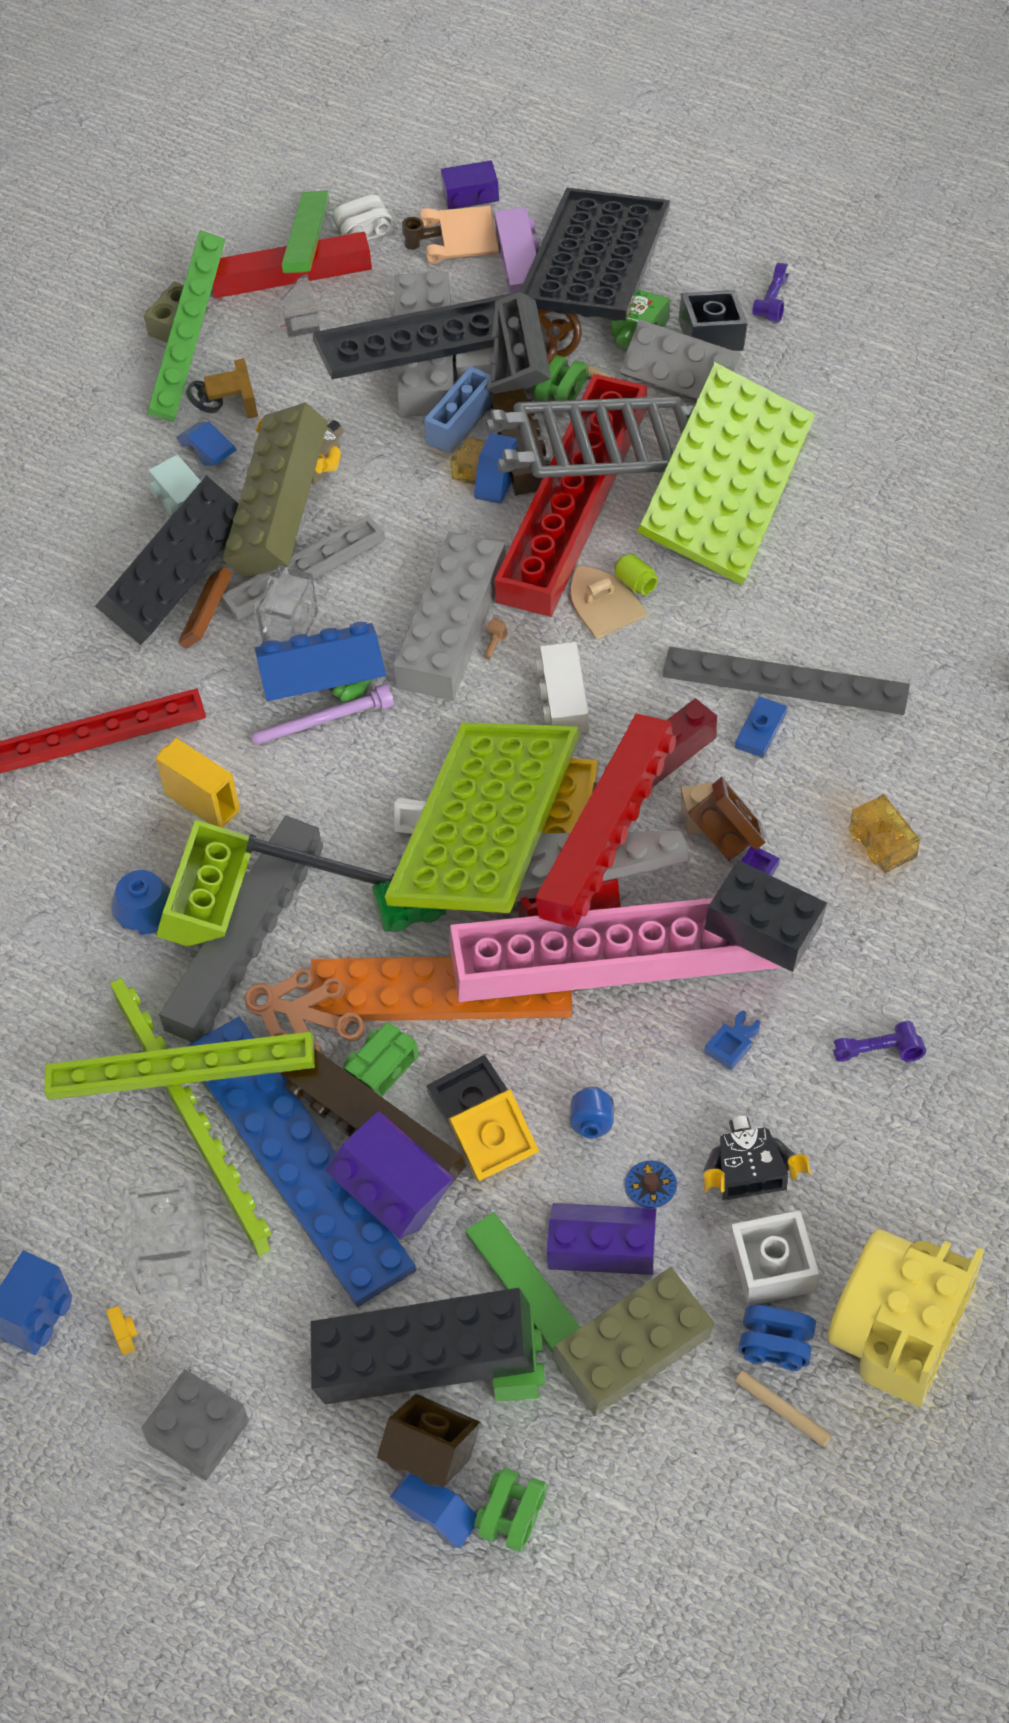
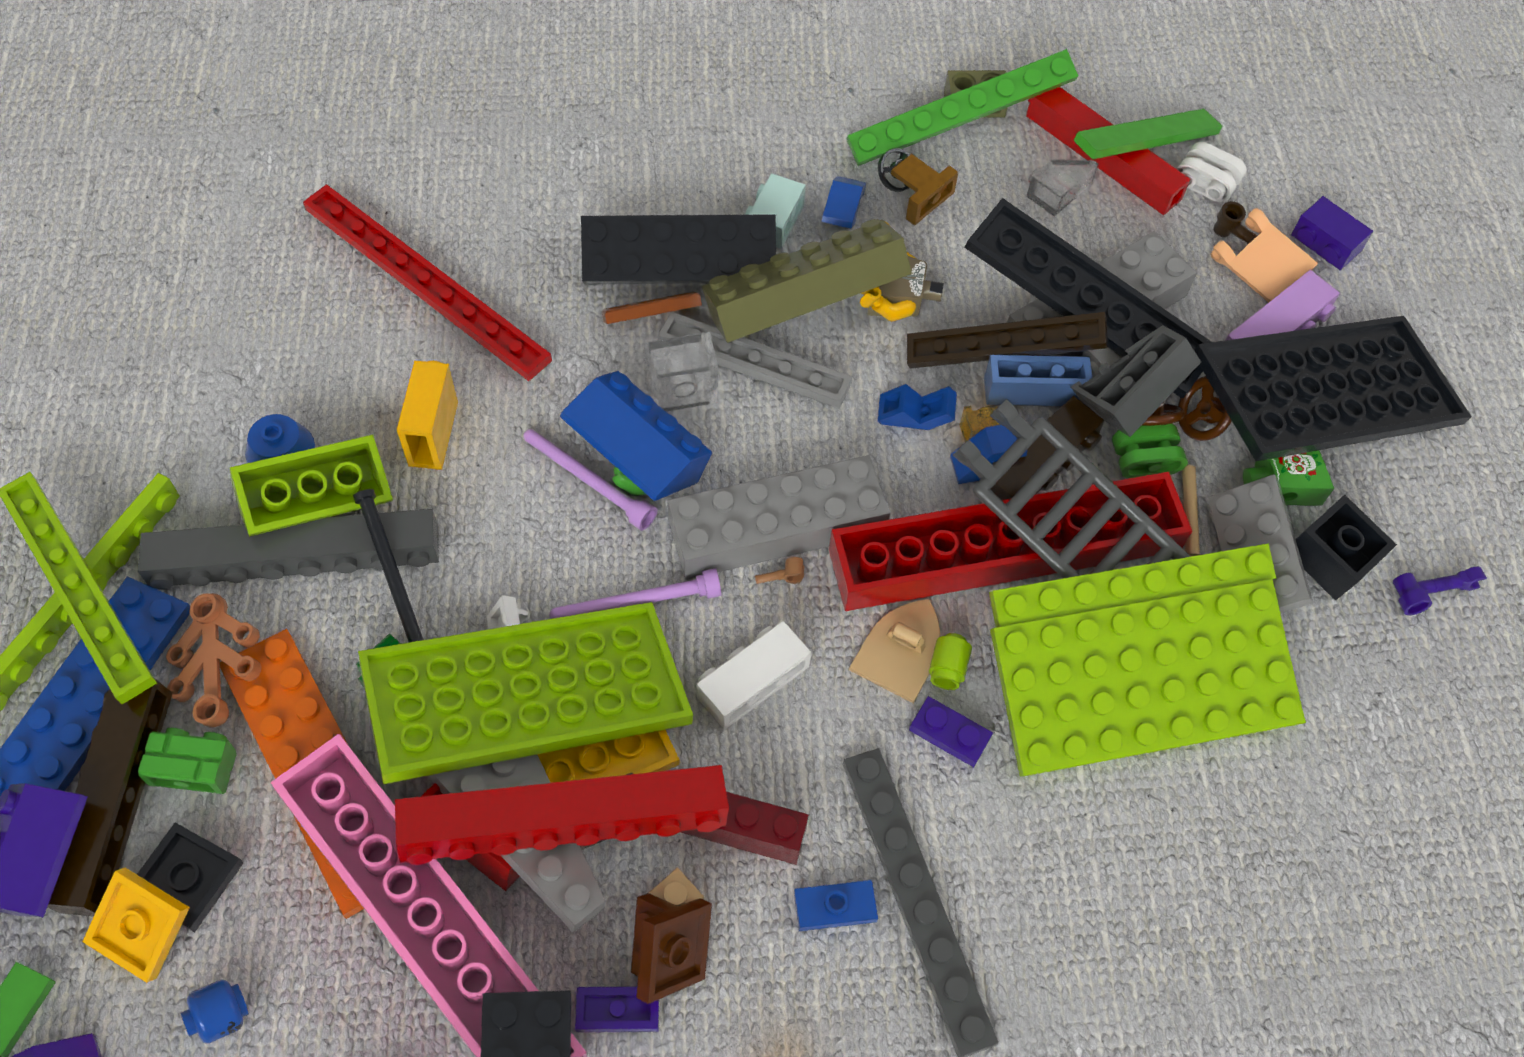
camera: 50 degrees right, 5 degrees up
(417, 405) = (1012, 338): none -> dark brown plate
(418, 500) = (910, 410): none -> blue slope
(470, 685) = (705, 585): none -> lavender piece
(662, 439) = (1131, 585): none -> lime plate
(684, 603) = (951, 731): none -> dark purple plate

